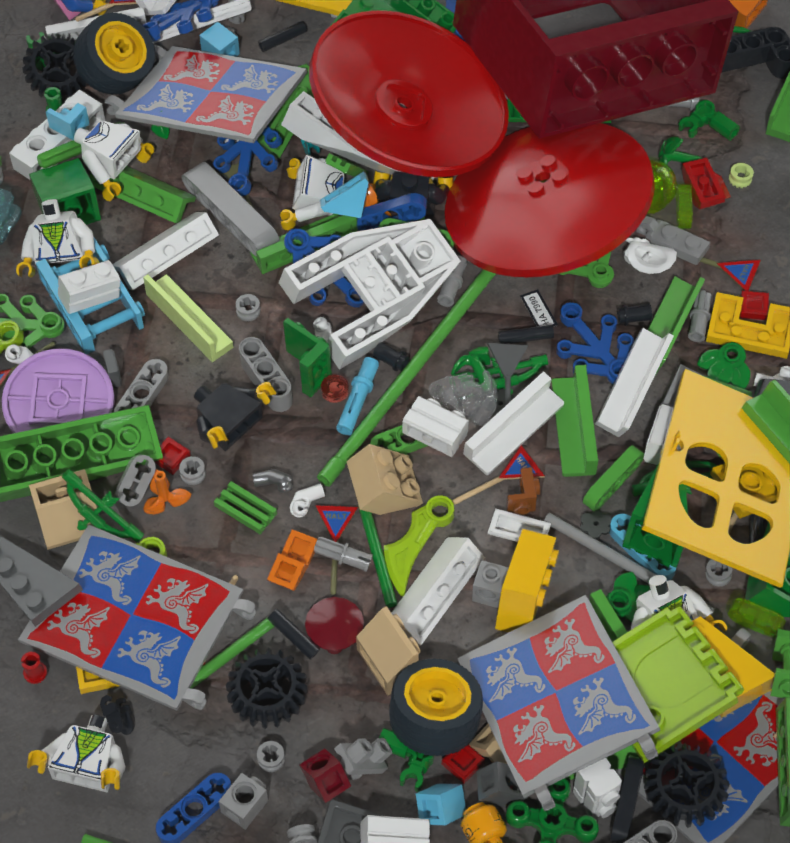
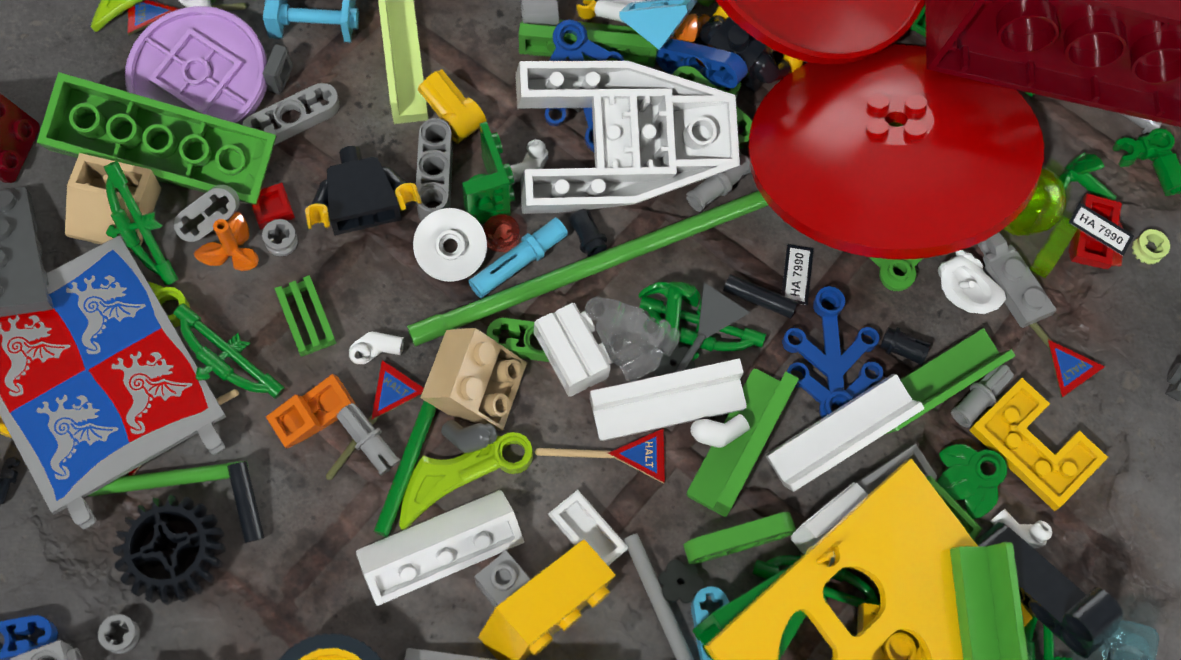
camera: 25 degrees right, 10 degrees up
(211, 564) = (231, 349): none -> green piece
(245, 326) = (451, 106): none -> yellow piece
(248, 315) = (469, 73): light grey bush -> none
(273, 476) = (360, 299): flat silver arm -> none
(311, 398) = (445, 225): none -> white dish
(334, 624) = (301, 517): dark red dish -> none
(386, 648) = (326, 593): tan slope -> none
(408, 516) = (469, 438): none -> dark grey arm
(529, 488) = (631, 490): dark orange bracket -> none
(558, 427) = (717, 433): none -> white arm
(705, 179) = (1101, 229): none -> sticker
(754, 305) = (1059, 419): red tile -> none

